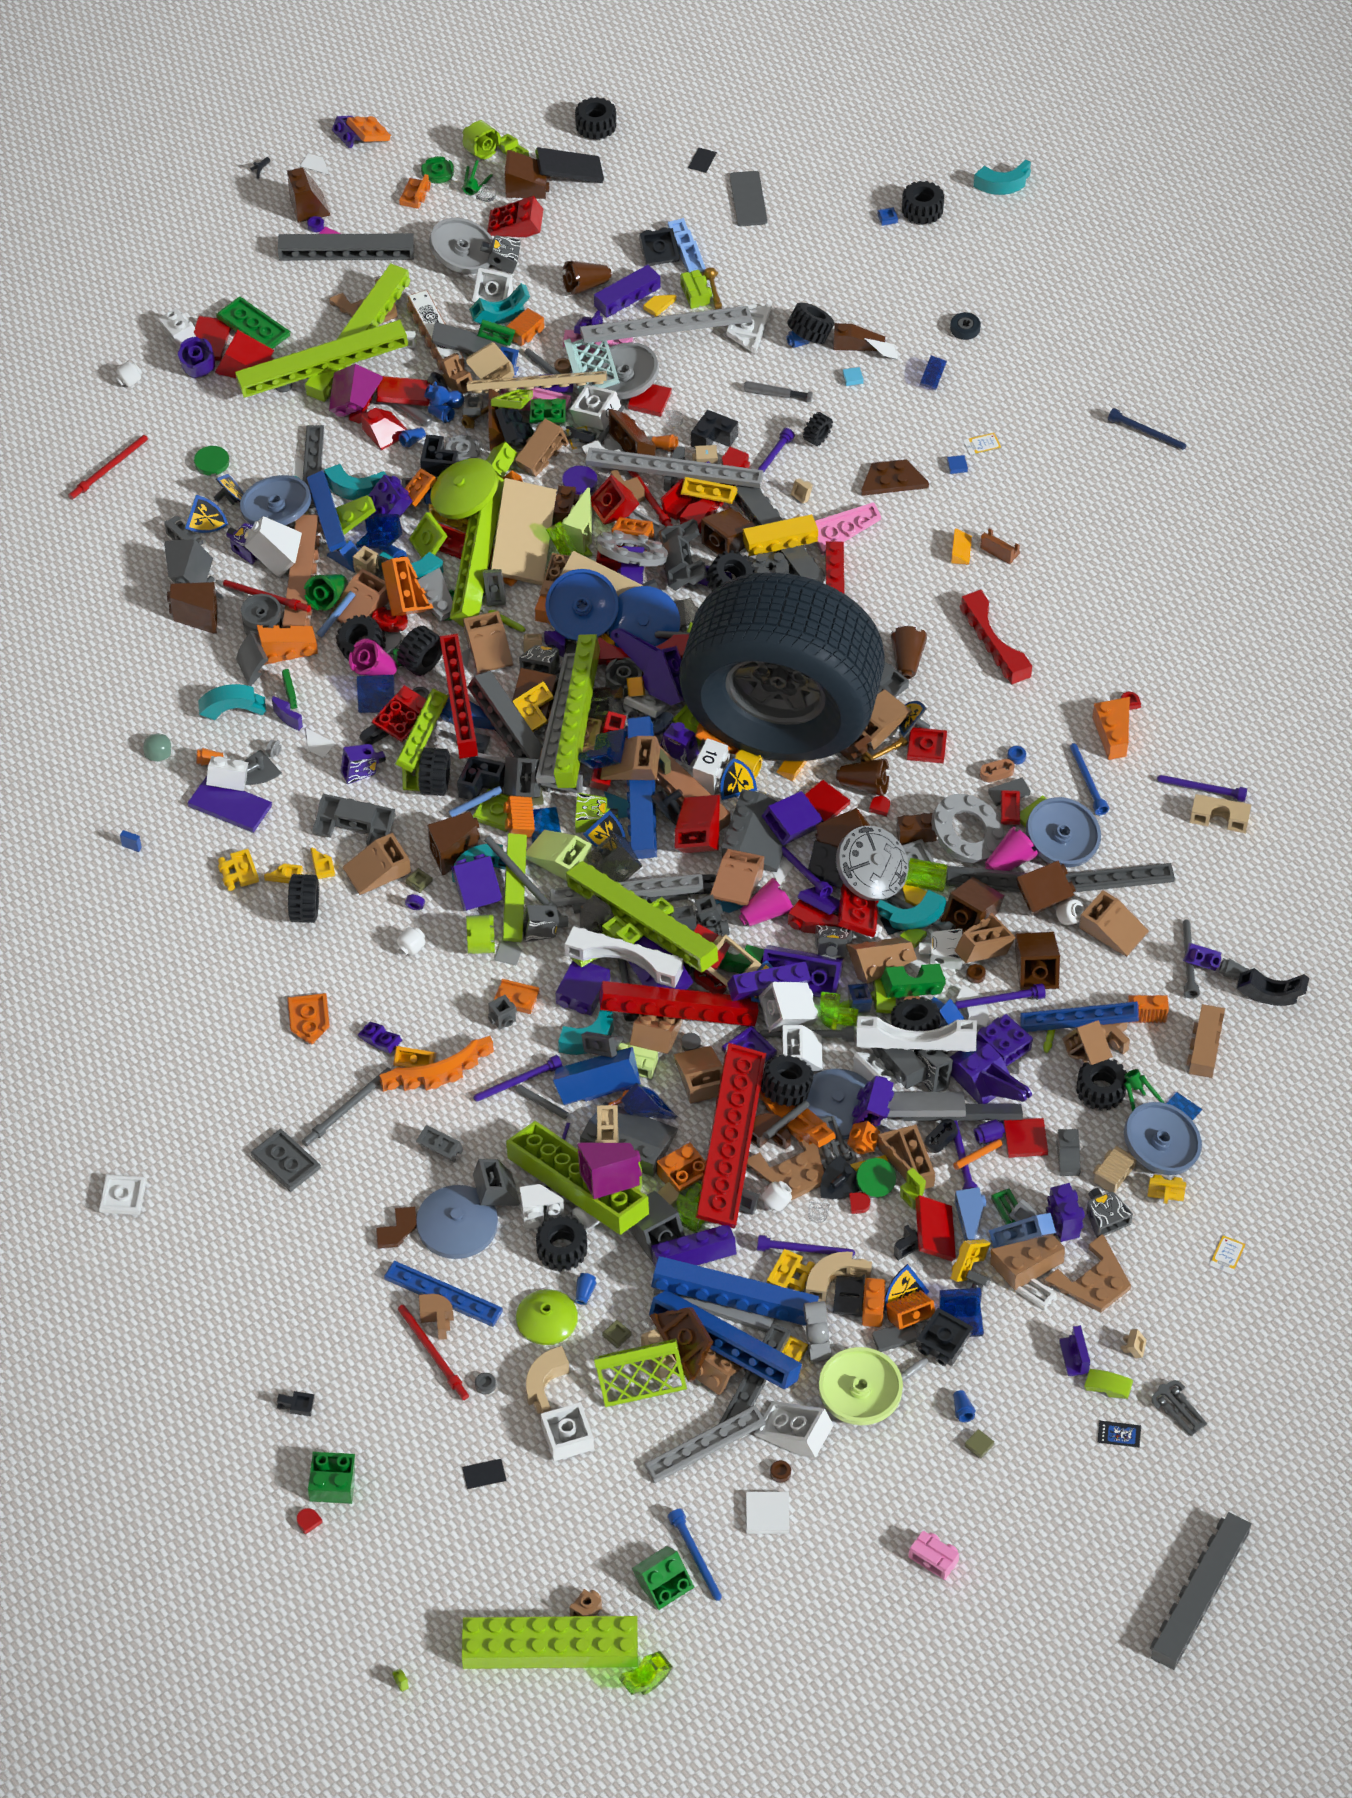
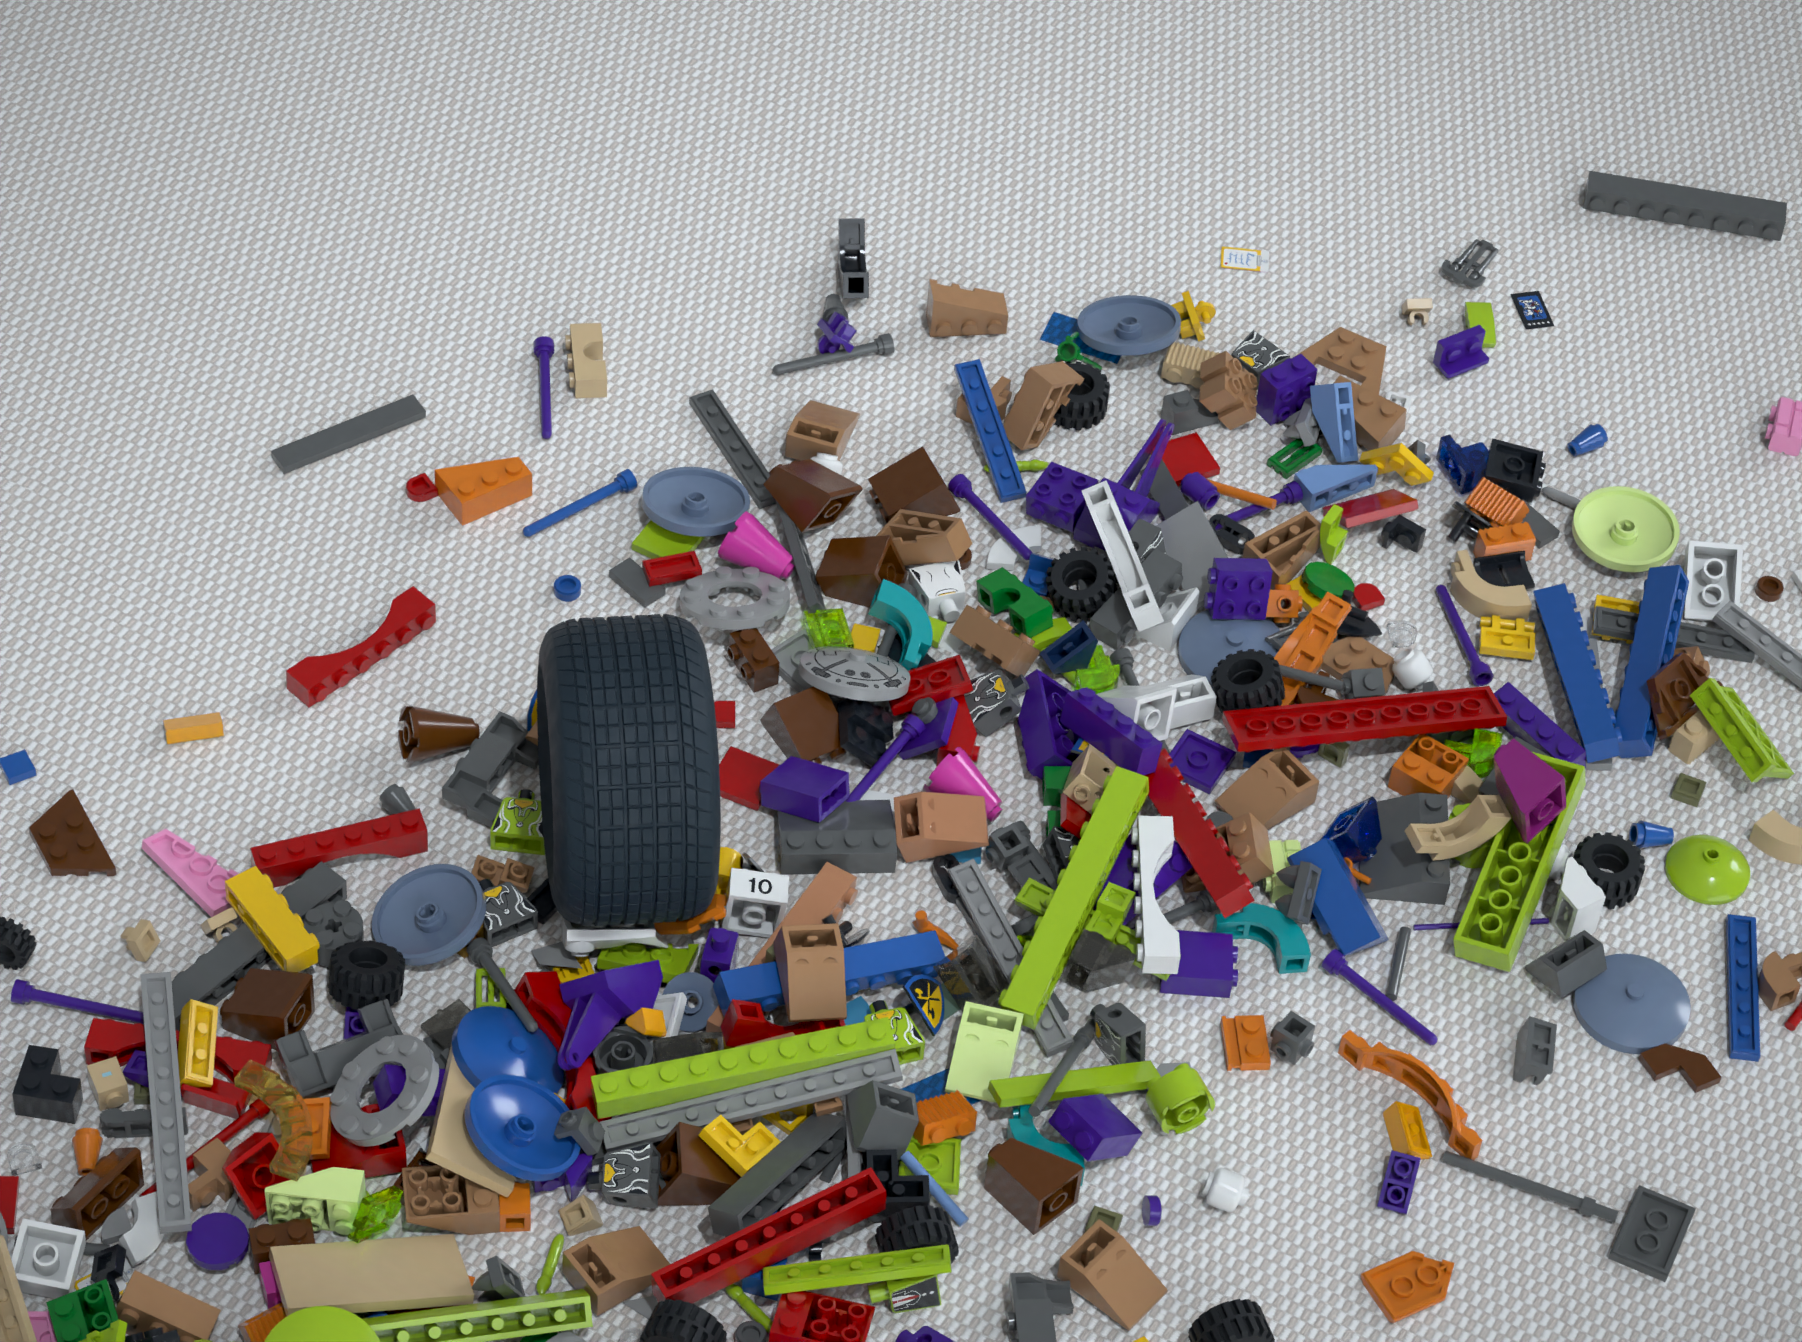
camera: 115 degrees left, 5 degrees down
(571, 634) = (582, 1127): none -> dark grey bracket
(607, 750) = (810, 1001): clear blue bracket -> none
(637, 513) = (290, 1112): none -> clear yellow tile
(666, 863) = (923, 925): none -> orange bar
(698, 824) = (871, 886): red slope -> none
(772, 1159) = (1363, 683): none -> dark grey bracket
(817, 1331) = (1583, 577): light grey piece -> none
(832, 896) = (925, 710): none -> dark grey plate
(979, 1443) = (1622, 420): olive tile -> none
(997, 770) = (609, 598): nougat beam -> none
(998, 547) = (179, 679): dark orange hinge -> none
(1083, 1166) = (1228, 390): none -> medium nougat brick
(1151, 1007) = (938, 375): orange brick -> none
(1190, 675) = (348, 434): none -> dark grey tile

